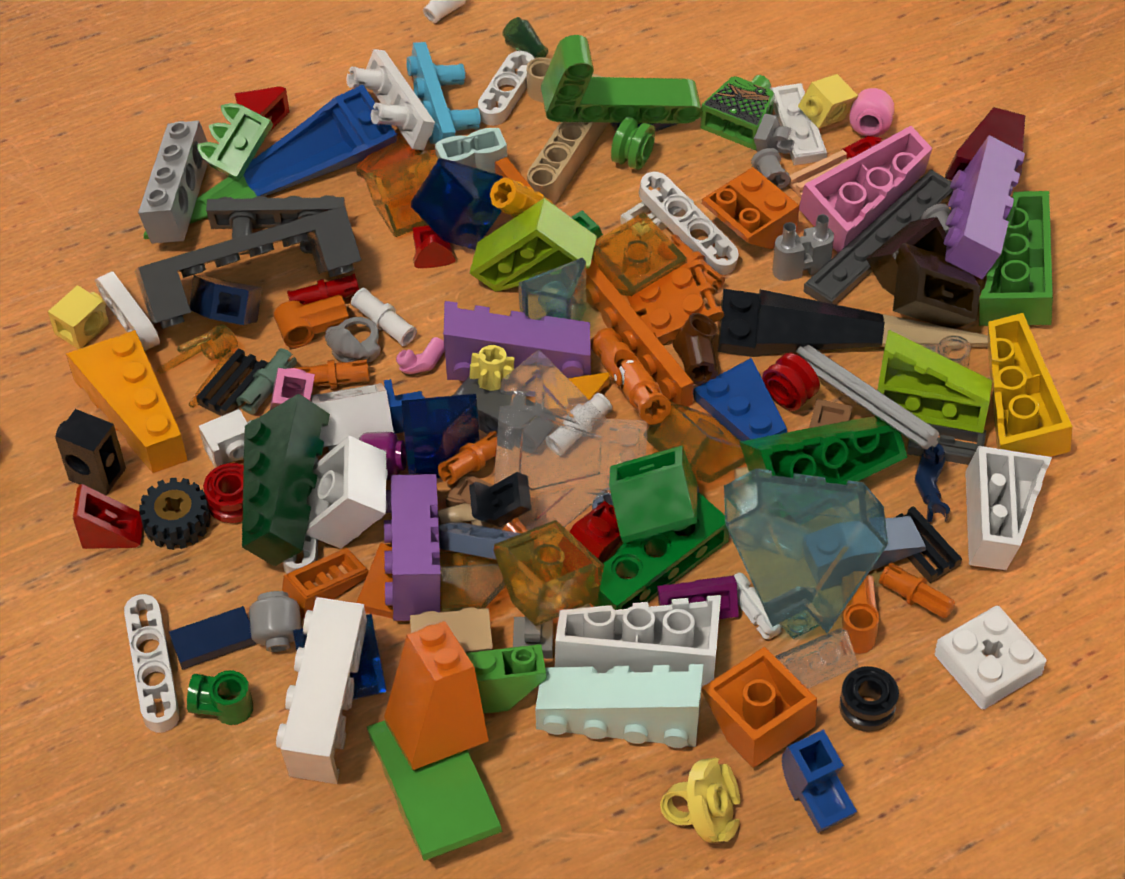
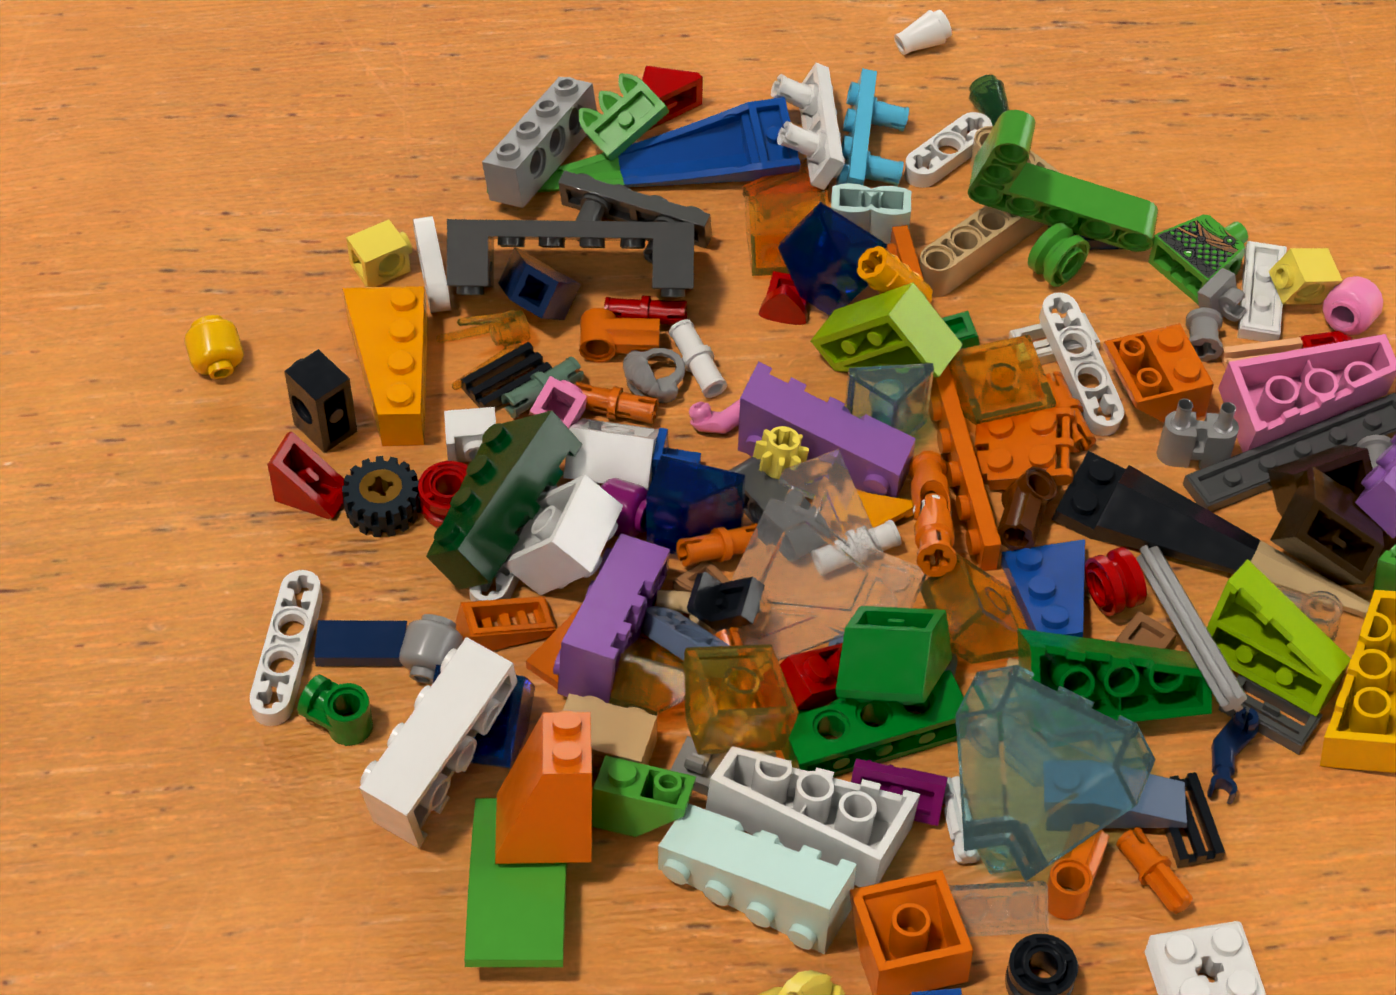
camera: 20 degrees right, 0 degrees up
(1000, 503) = (1297, 804): white wedge -> none

